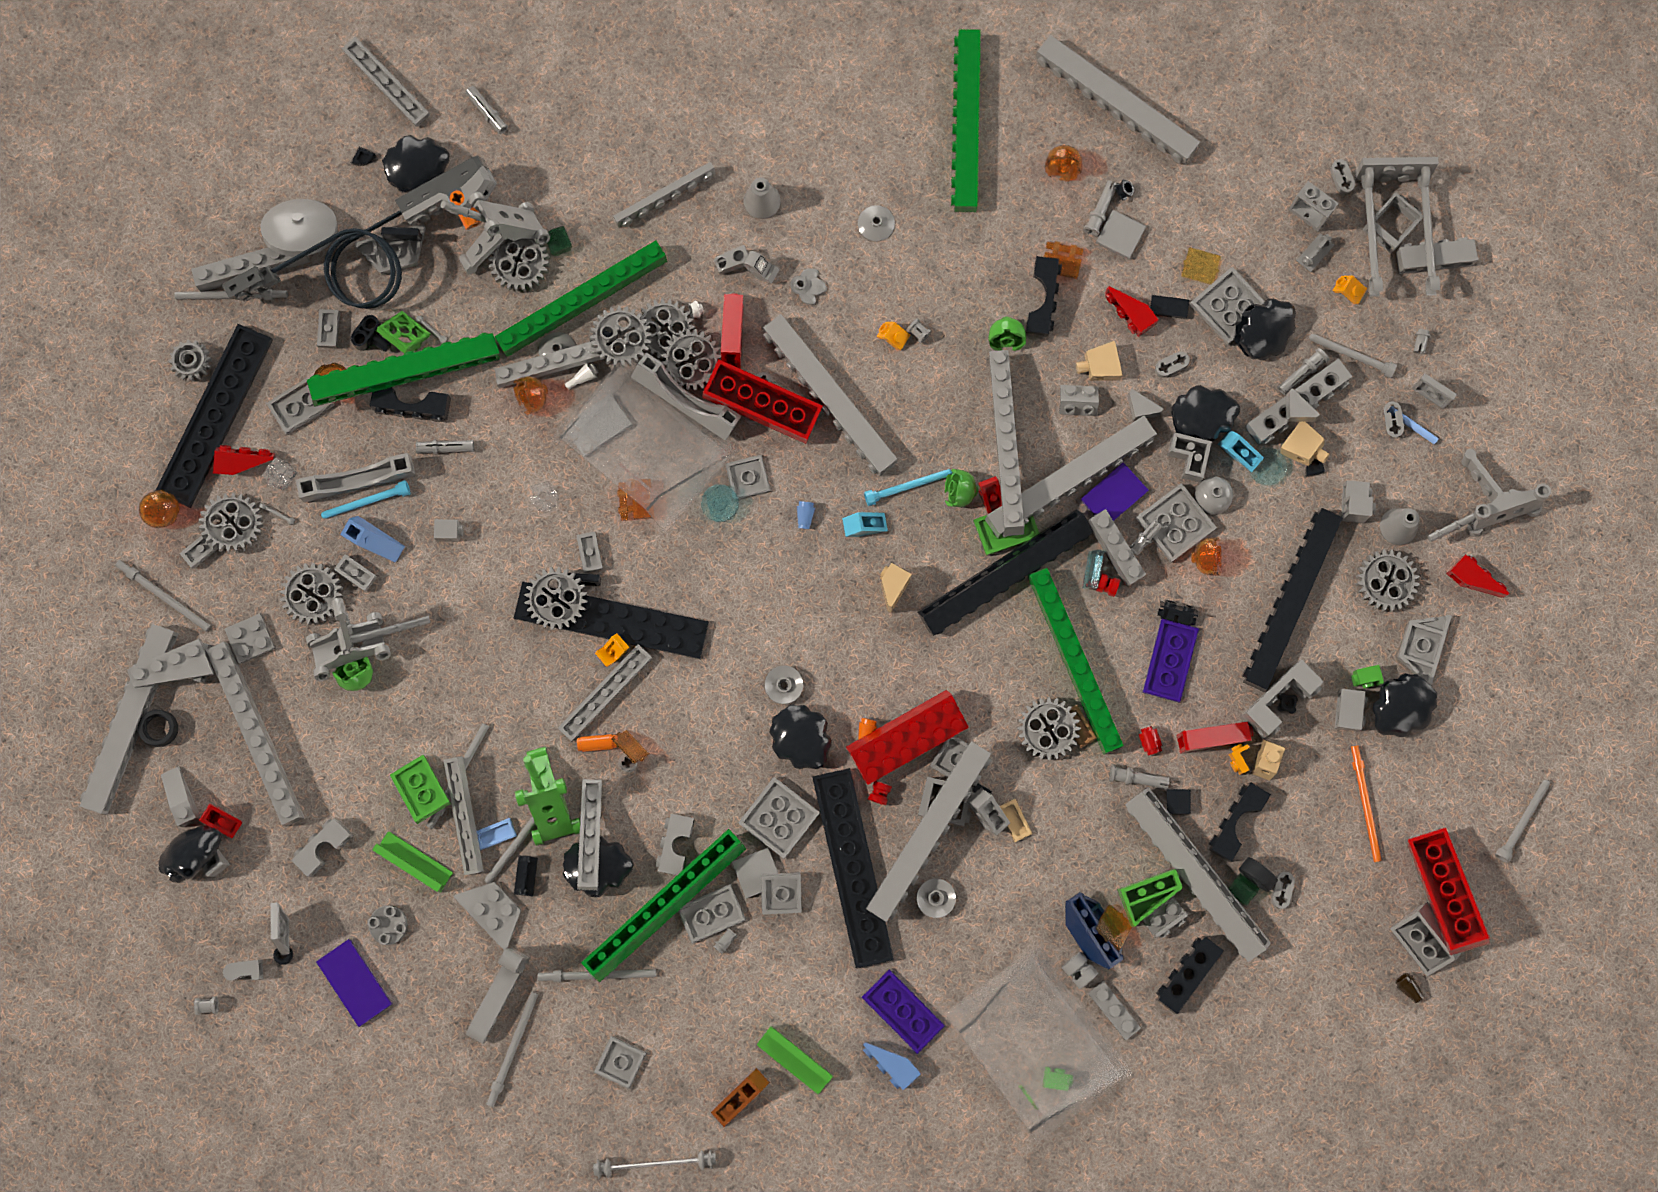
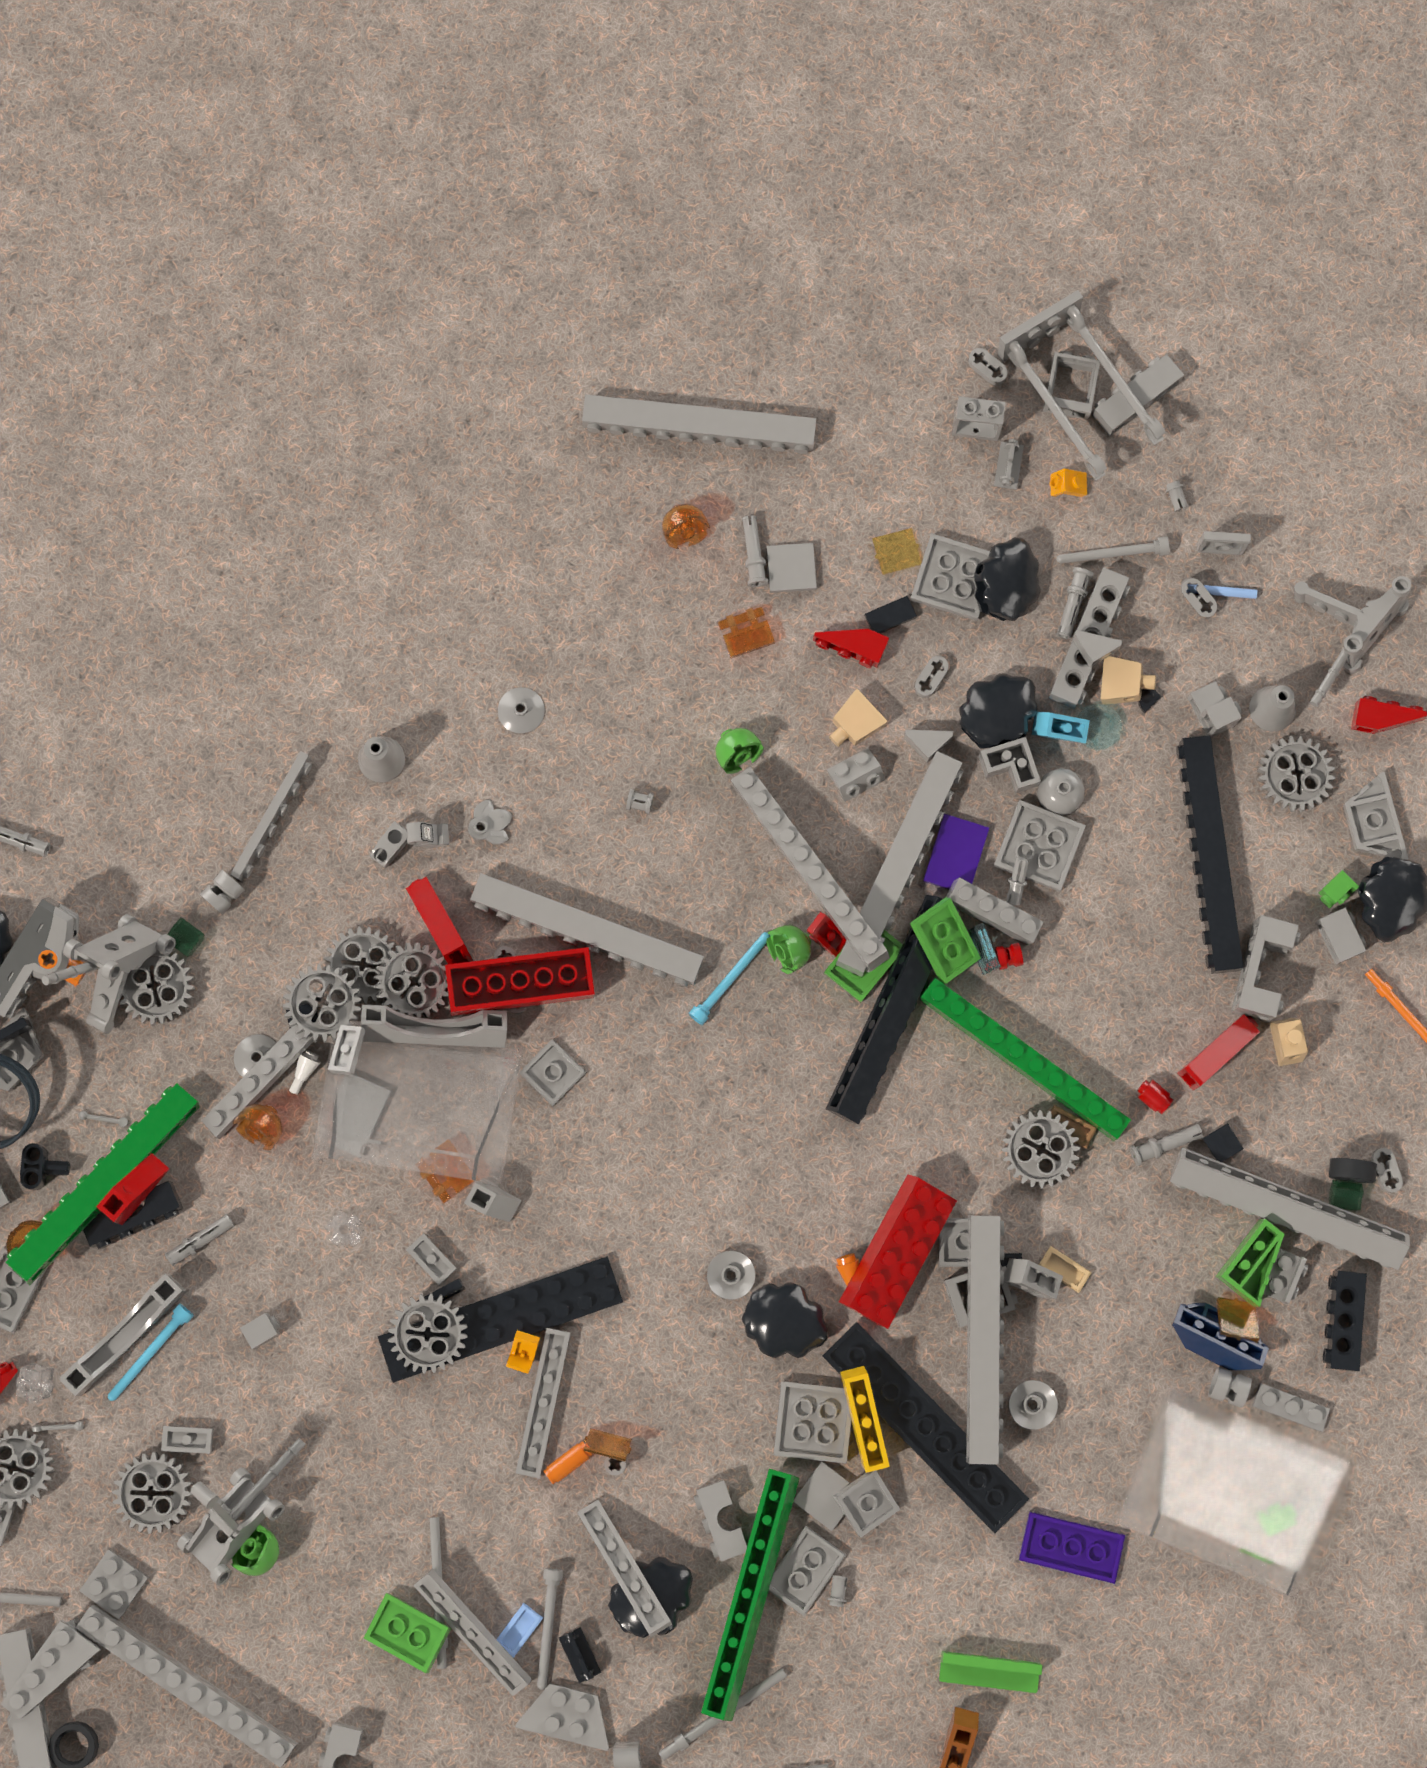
camera: 35 degrees left, 0 degrees up
(372, 539) = (183, 1391): medium blue slope -> none
(399, 321) = (66, 1125): bright green piece -> none
(413, 861) = (448, 1716): bright green panel -> none
(419, 384) = (133, 1189): none -> red slope
(546, 799) = (553, 1558): bright green piece -> none
(581, 298) = (250, 986): green brick -> none
(601, 225) = (230, 889): none -> light grey wheel
(617, 375) = (346, 1050): none -> light grey plate
(653, 537) = (492, 1201): none -> light grey slope
(695, 310) = (383, 923): white plate -> none
(720, 503) = (540, 1119): clear light blue tile -> none
(805, 514) = (639, 1075): medium blue cone -> none
(814, 835) = (864, 1419): none -> yellow brick
(864, 524) = (710, 1047): medium azure slope -> none
(879, 788) = (903, 1323): red wheel -> none
(893, 334) = (615, 822): light orange bracket -> none
(893, 583) = (783, 1095): tan slope -> none
(897, 1066) = (1101, 1610): medium blue slope -> none
(967, 120) = (551, 540): green brick -> none
(1046, 272) = (739, 657): black arch -> none
(1070, 546) = (945, 940): none -> bright green plate
(1124, 189) = (766, 516): black plate -> none
(1170, 609) = (1090, 941): black hinge -> none
(1170, 660) = (1123, 997): dark purple tile -> none
(1208, 556) = (1095, 862): clear orange cylinder -> none
(1226, 842) = (1298, 1156): black arch -> none
(1238, 763) = (1259, 1064): light orange bracket -> none
(1292, 703) = (1278, 970): black plate -> none

